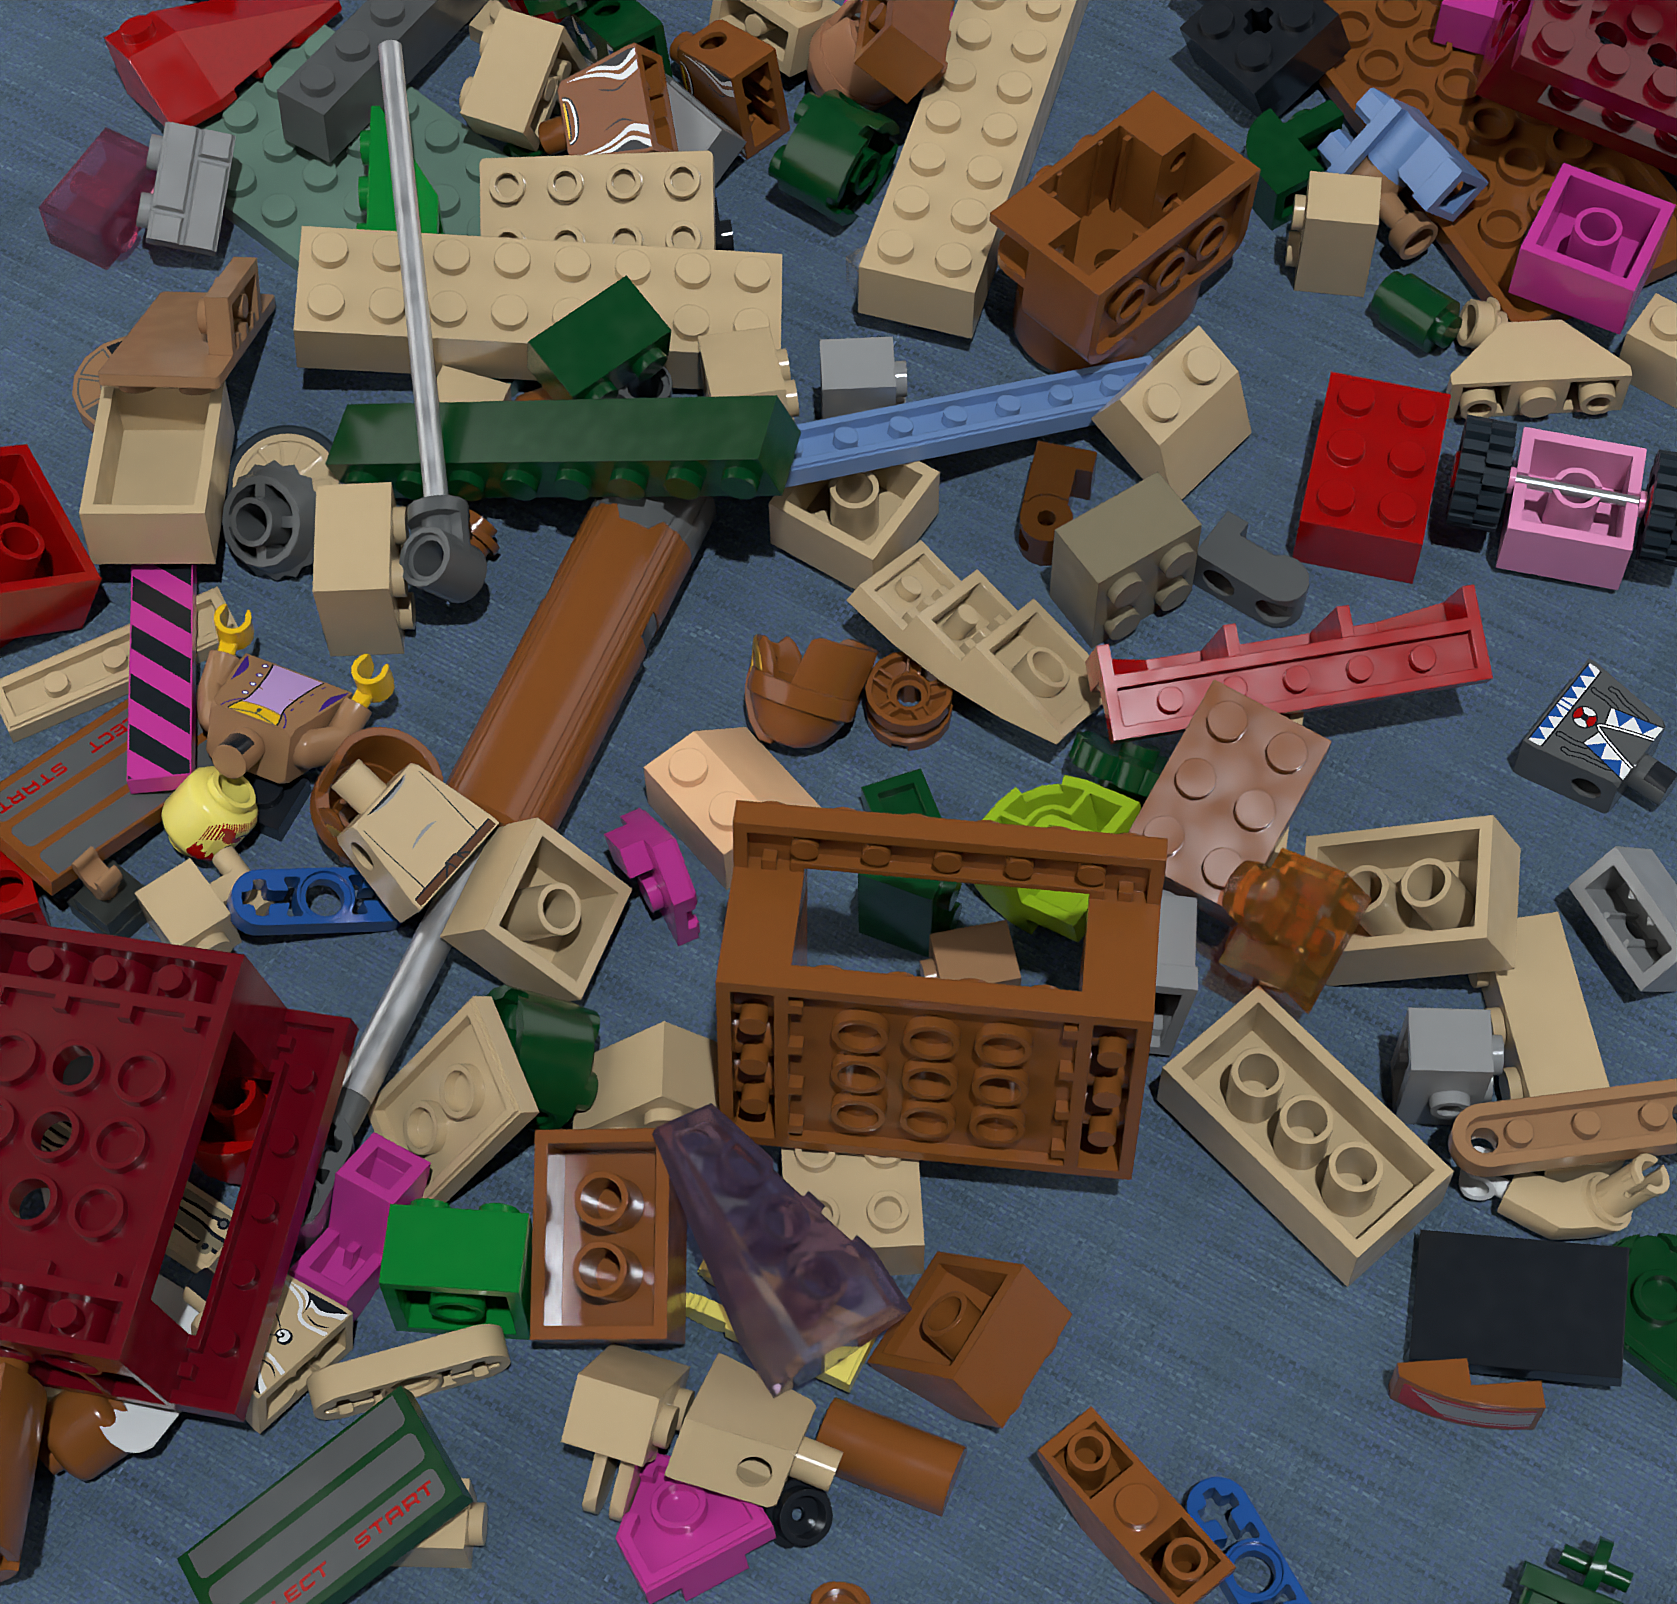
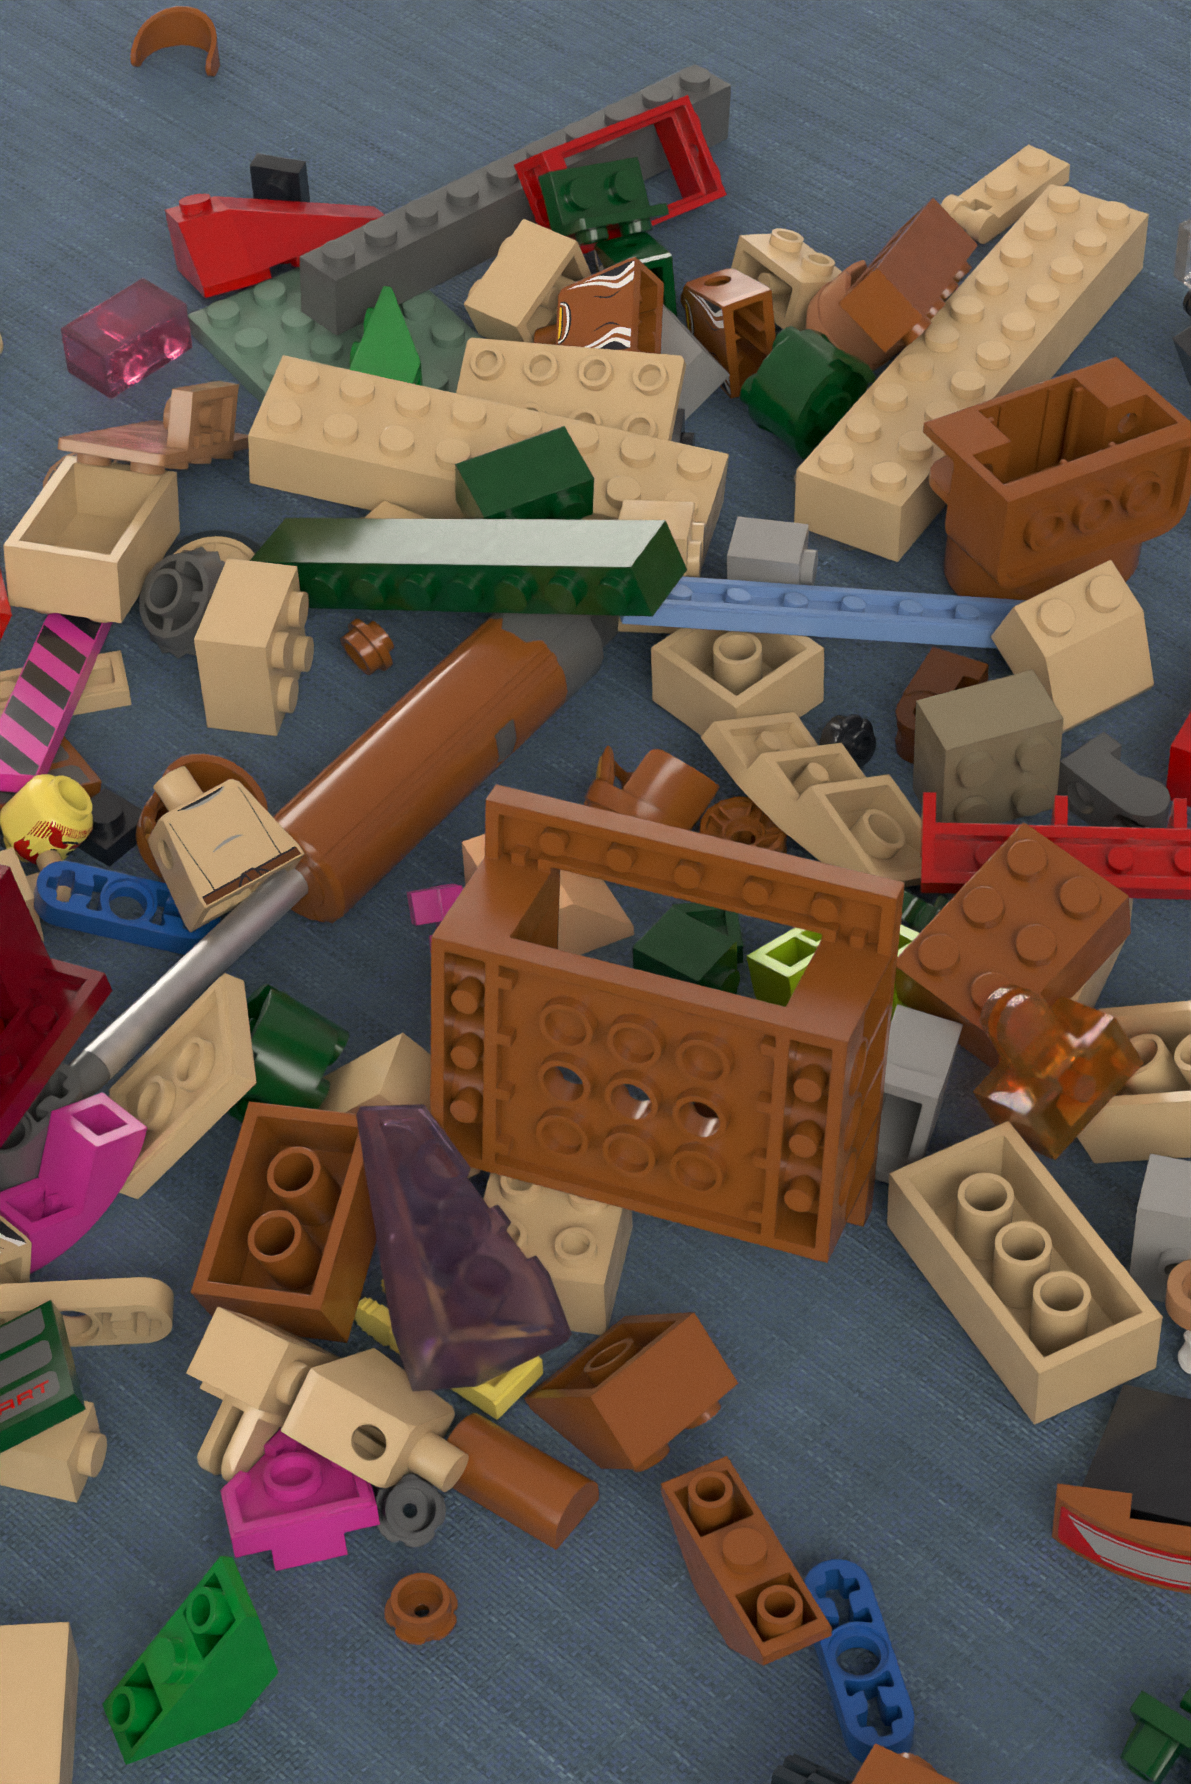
camera: 15 degrees right, 15 degrees down
(188, 188) = (200, 329): light grey brick -> none
(274, 717) = (126, 748): medium nougat torso -> none
(439, 547) = (324, 629): flat silver piece -> none
(457, 1267) = (139, 1217): green brick -> none
(536, 911) = (322, 937): tan brick -> none
(982, 554) = (855, 735): none -> black plate

